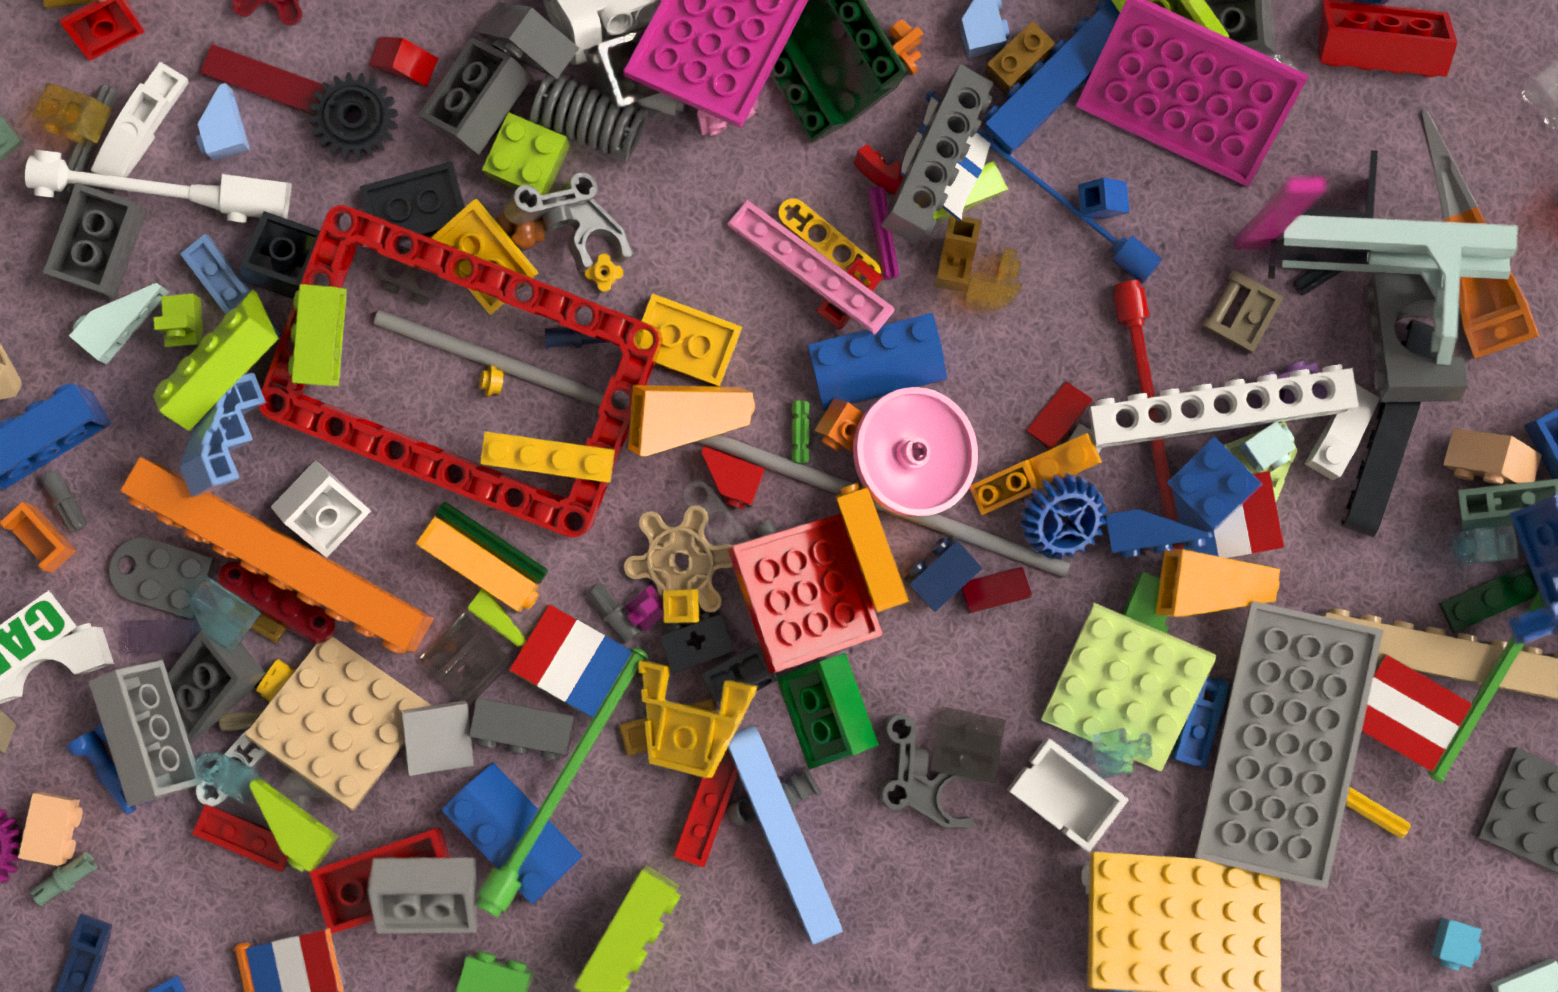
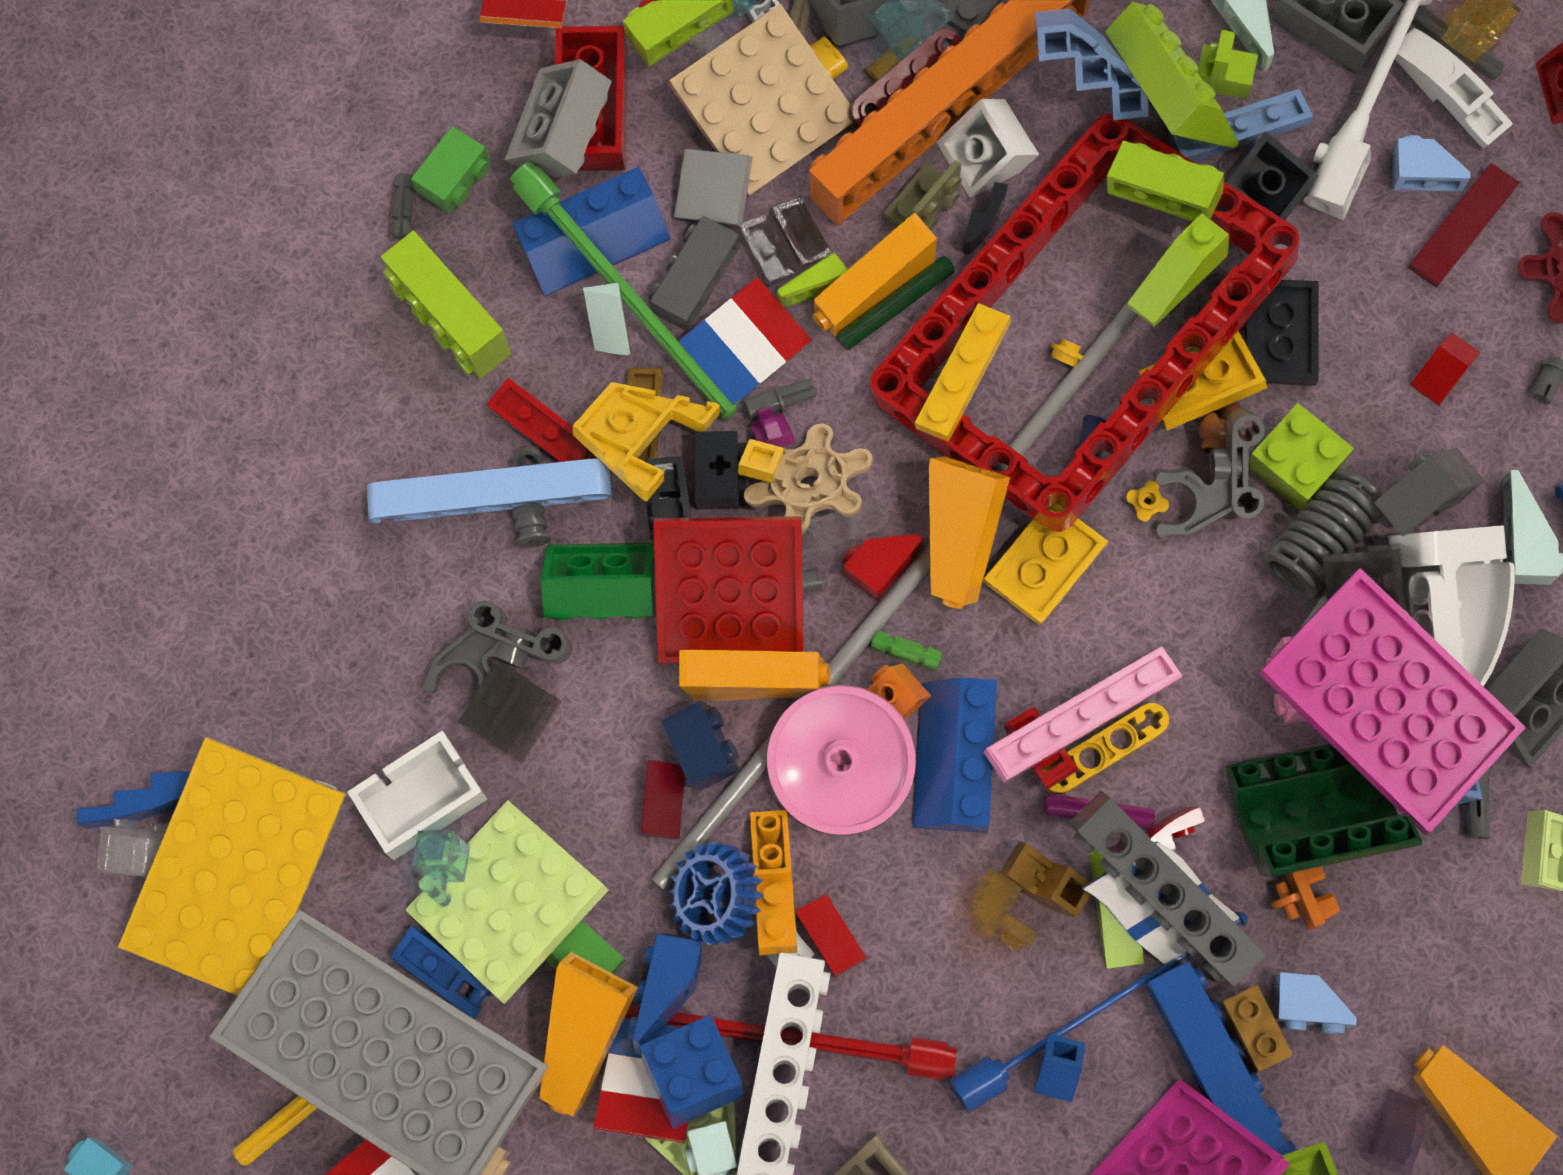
camera: 110 degrees right, 10 degrees down
(350, 97) = (1400, 276): black gear -> none
(388, 550) = (926, 195): none -> olive bracket
(397, 491) = (983, 222): none -> black slope
(401, 297) = (1180, 269): none -> lime slope
(475, 95) = (1381, 420): dark grey brick -> none
(593, 787) = (607, 319): none -> light aqua slope

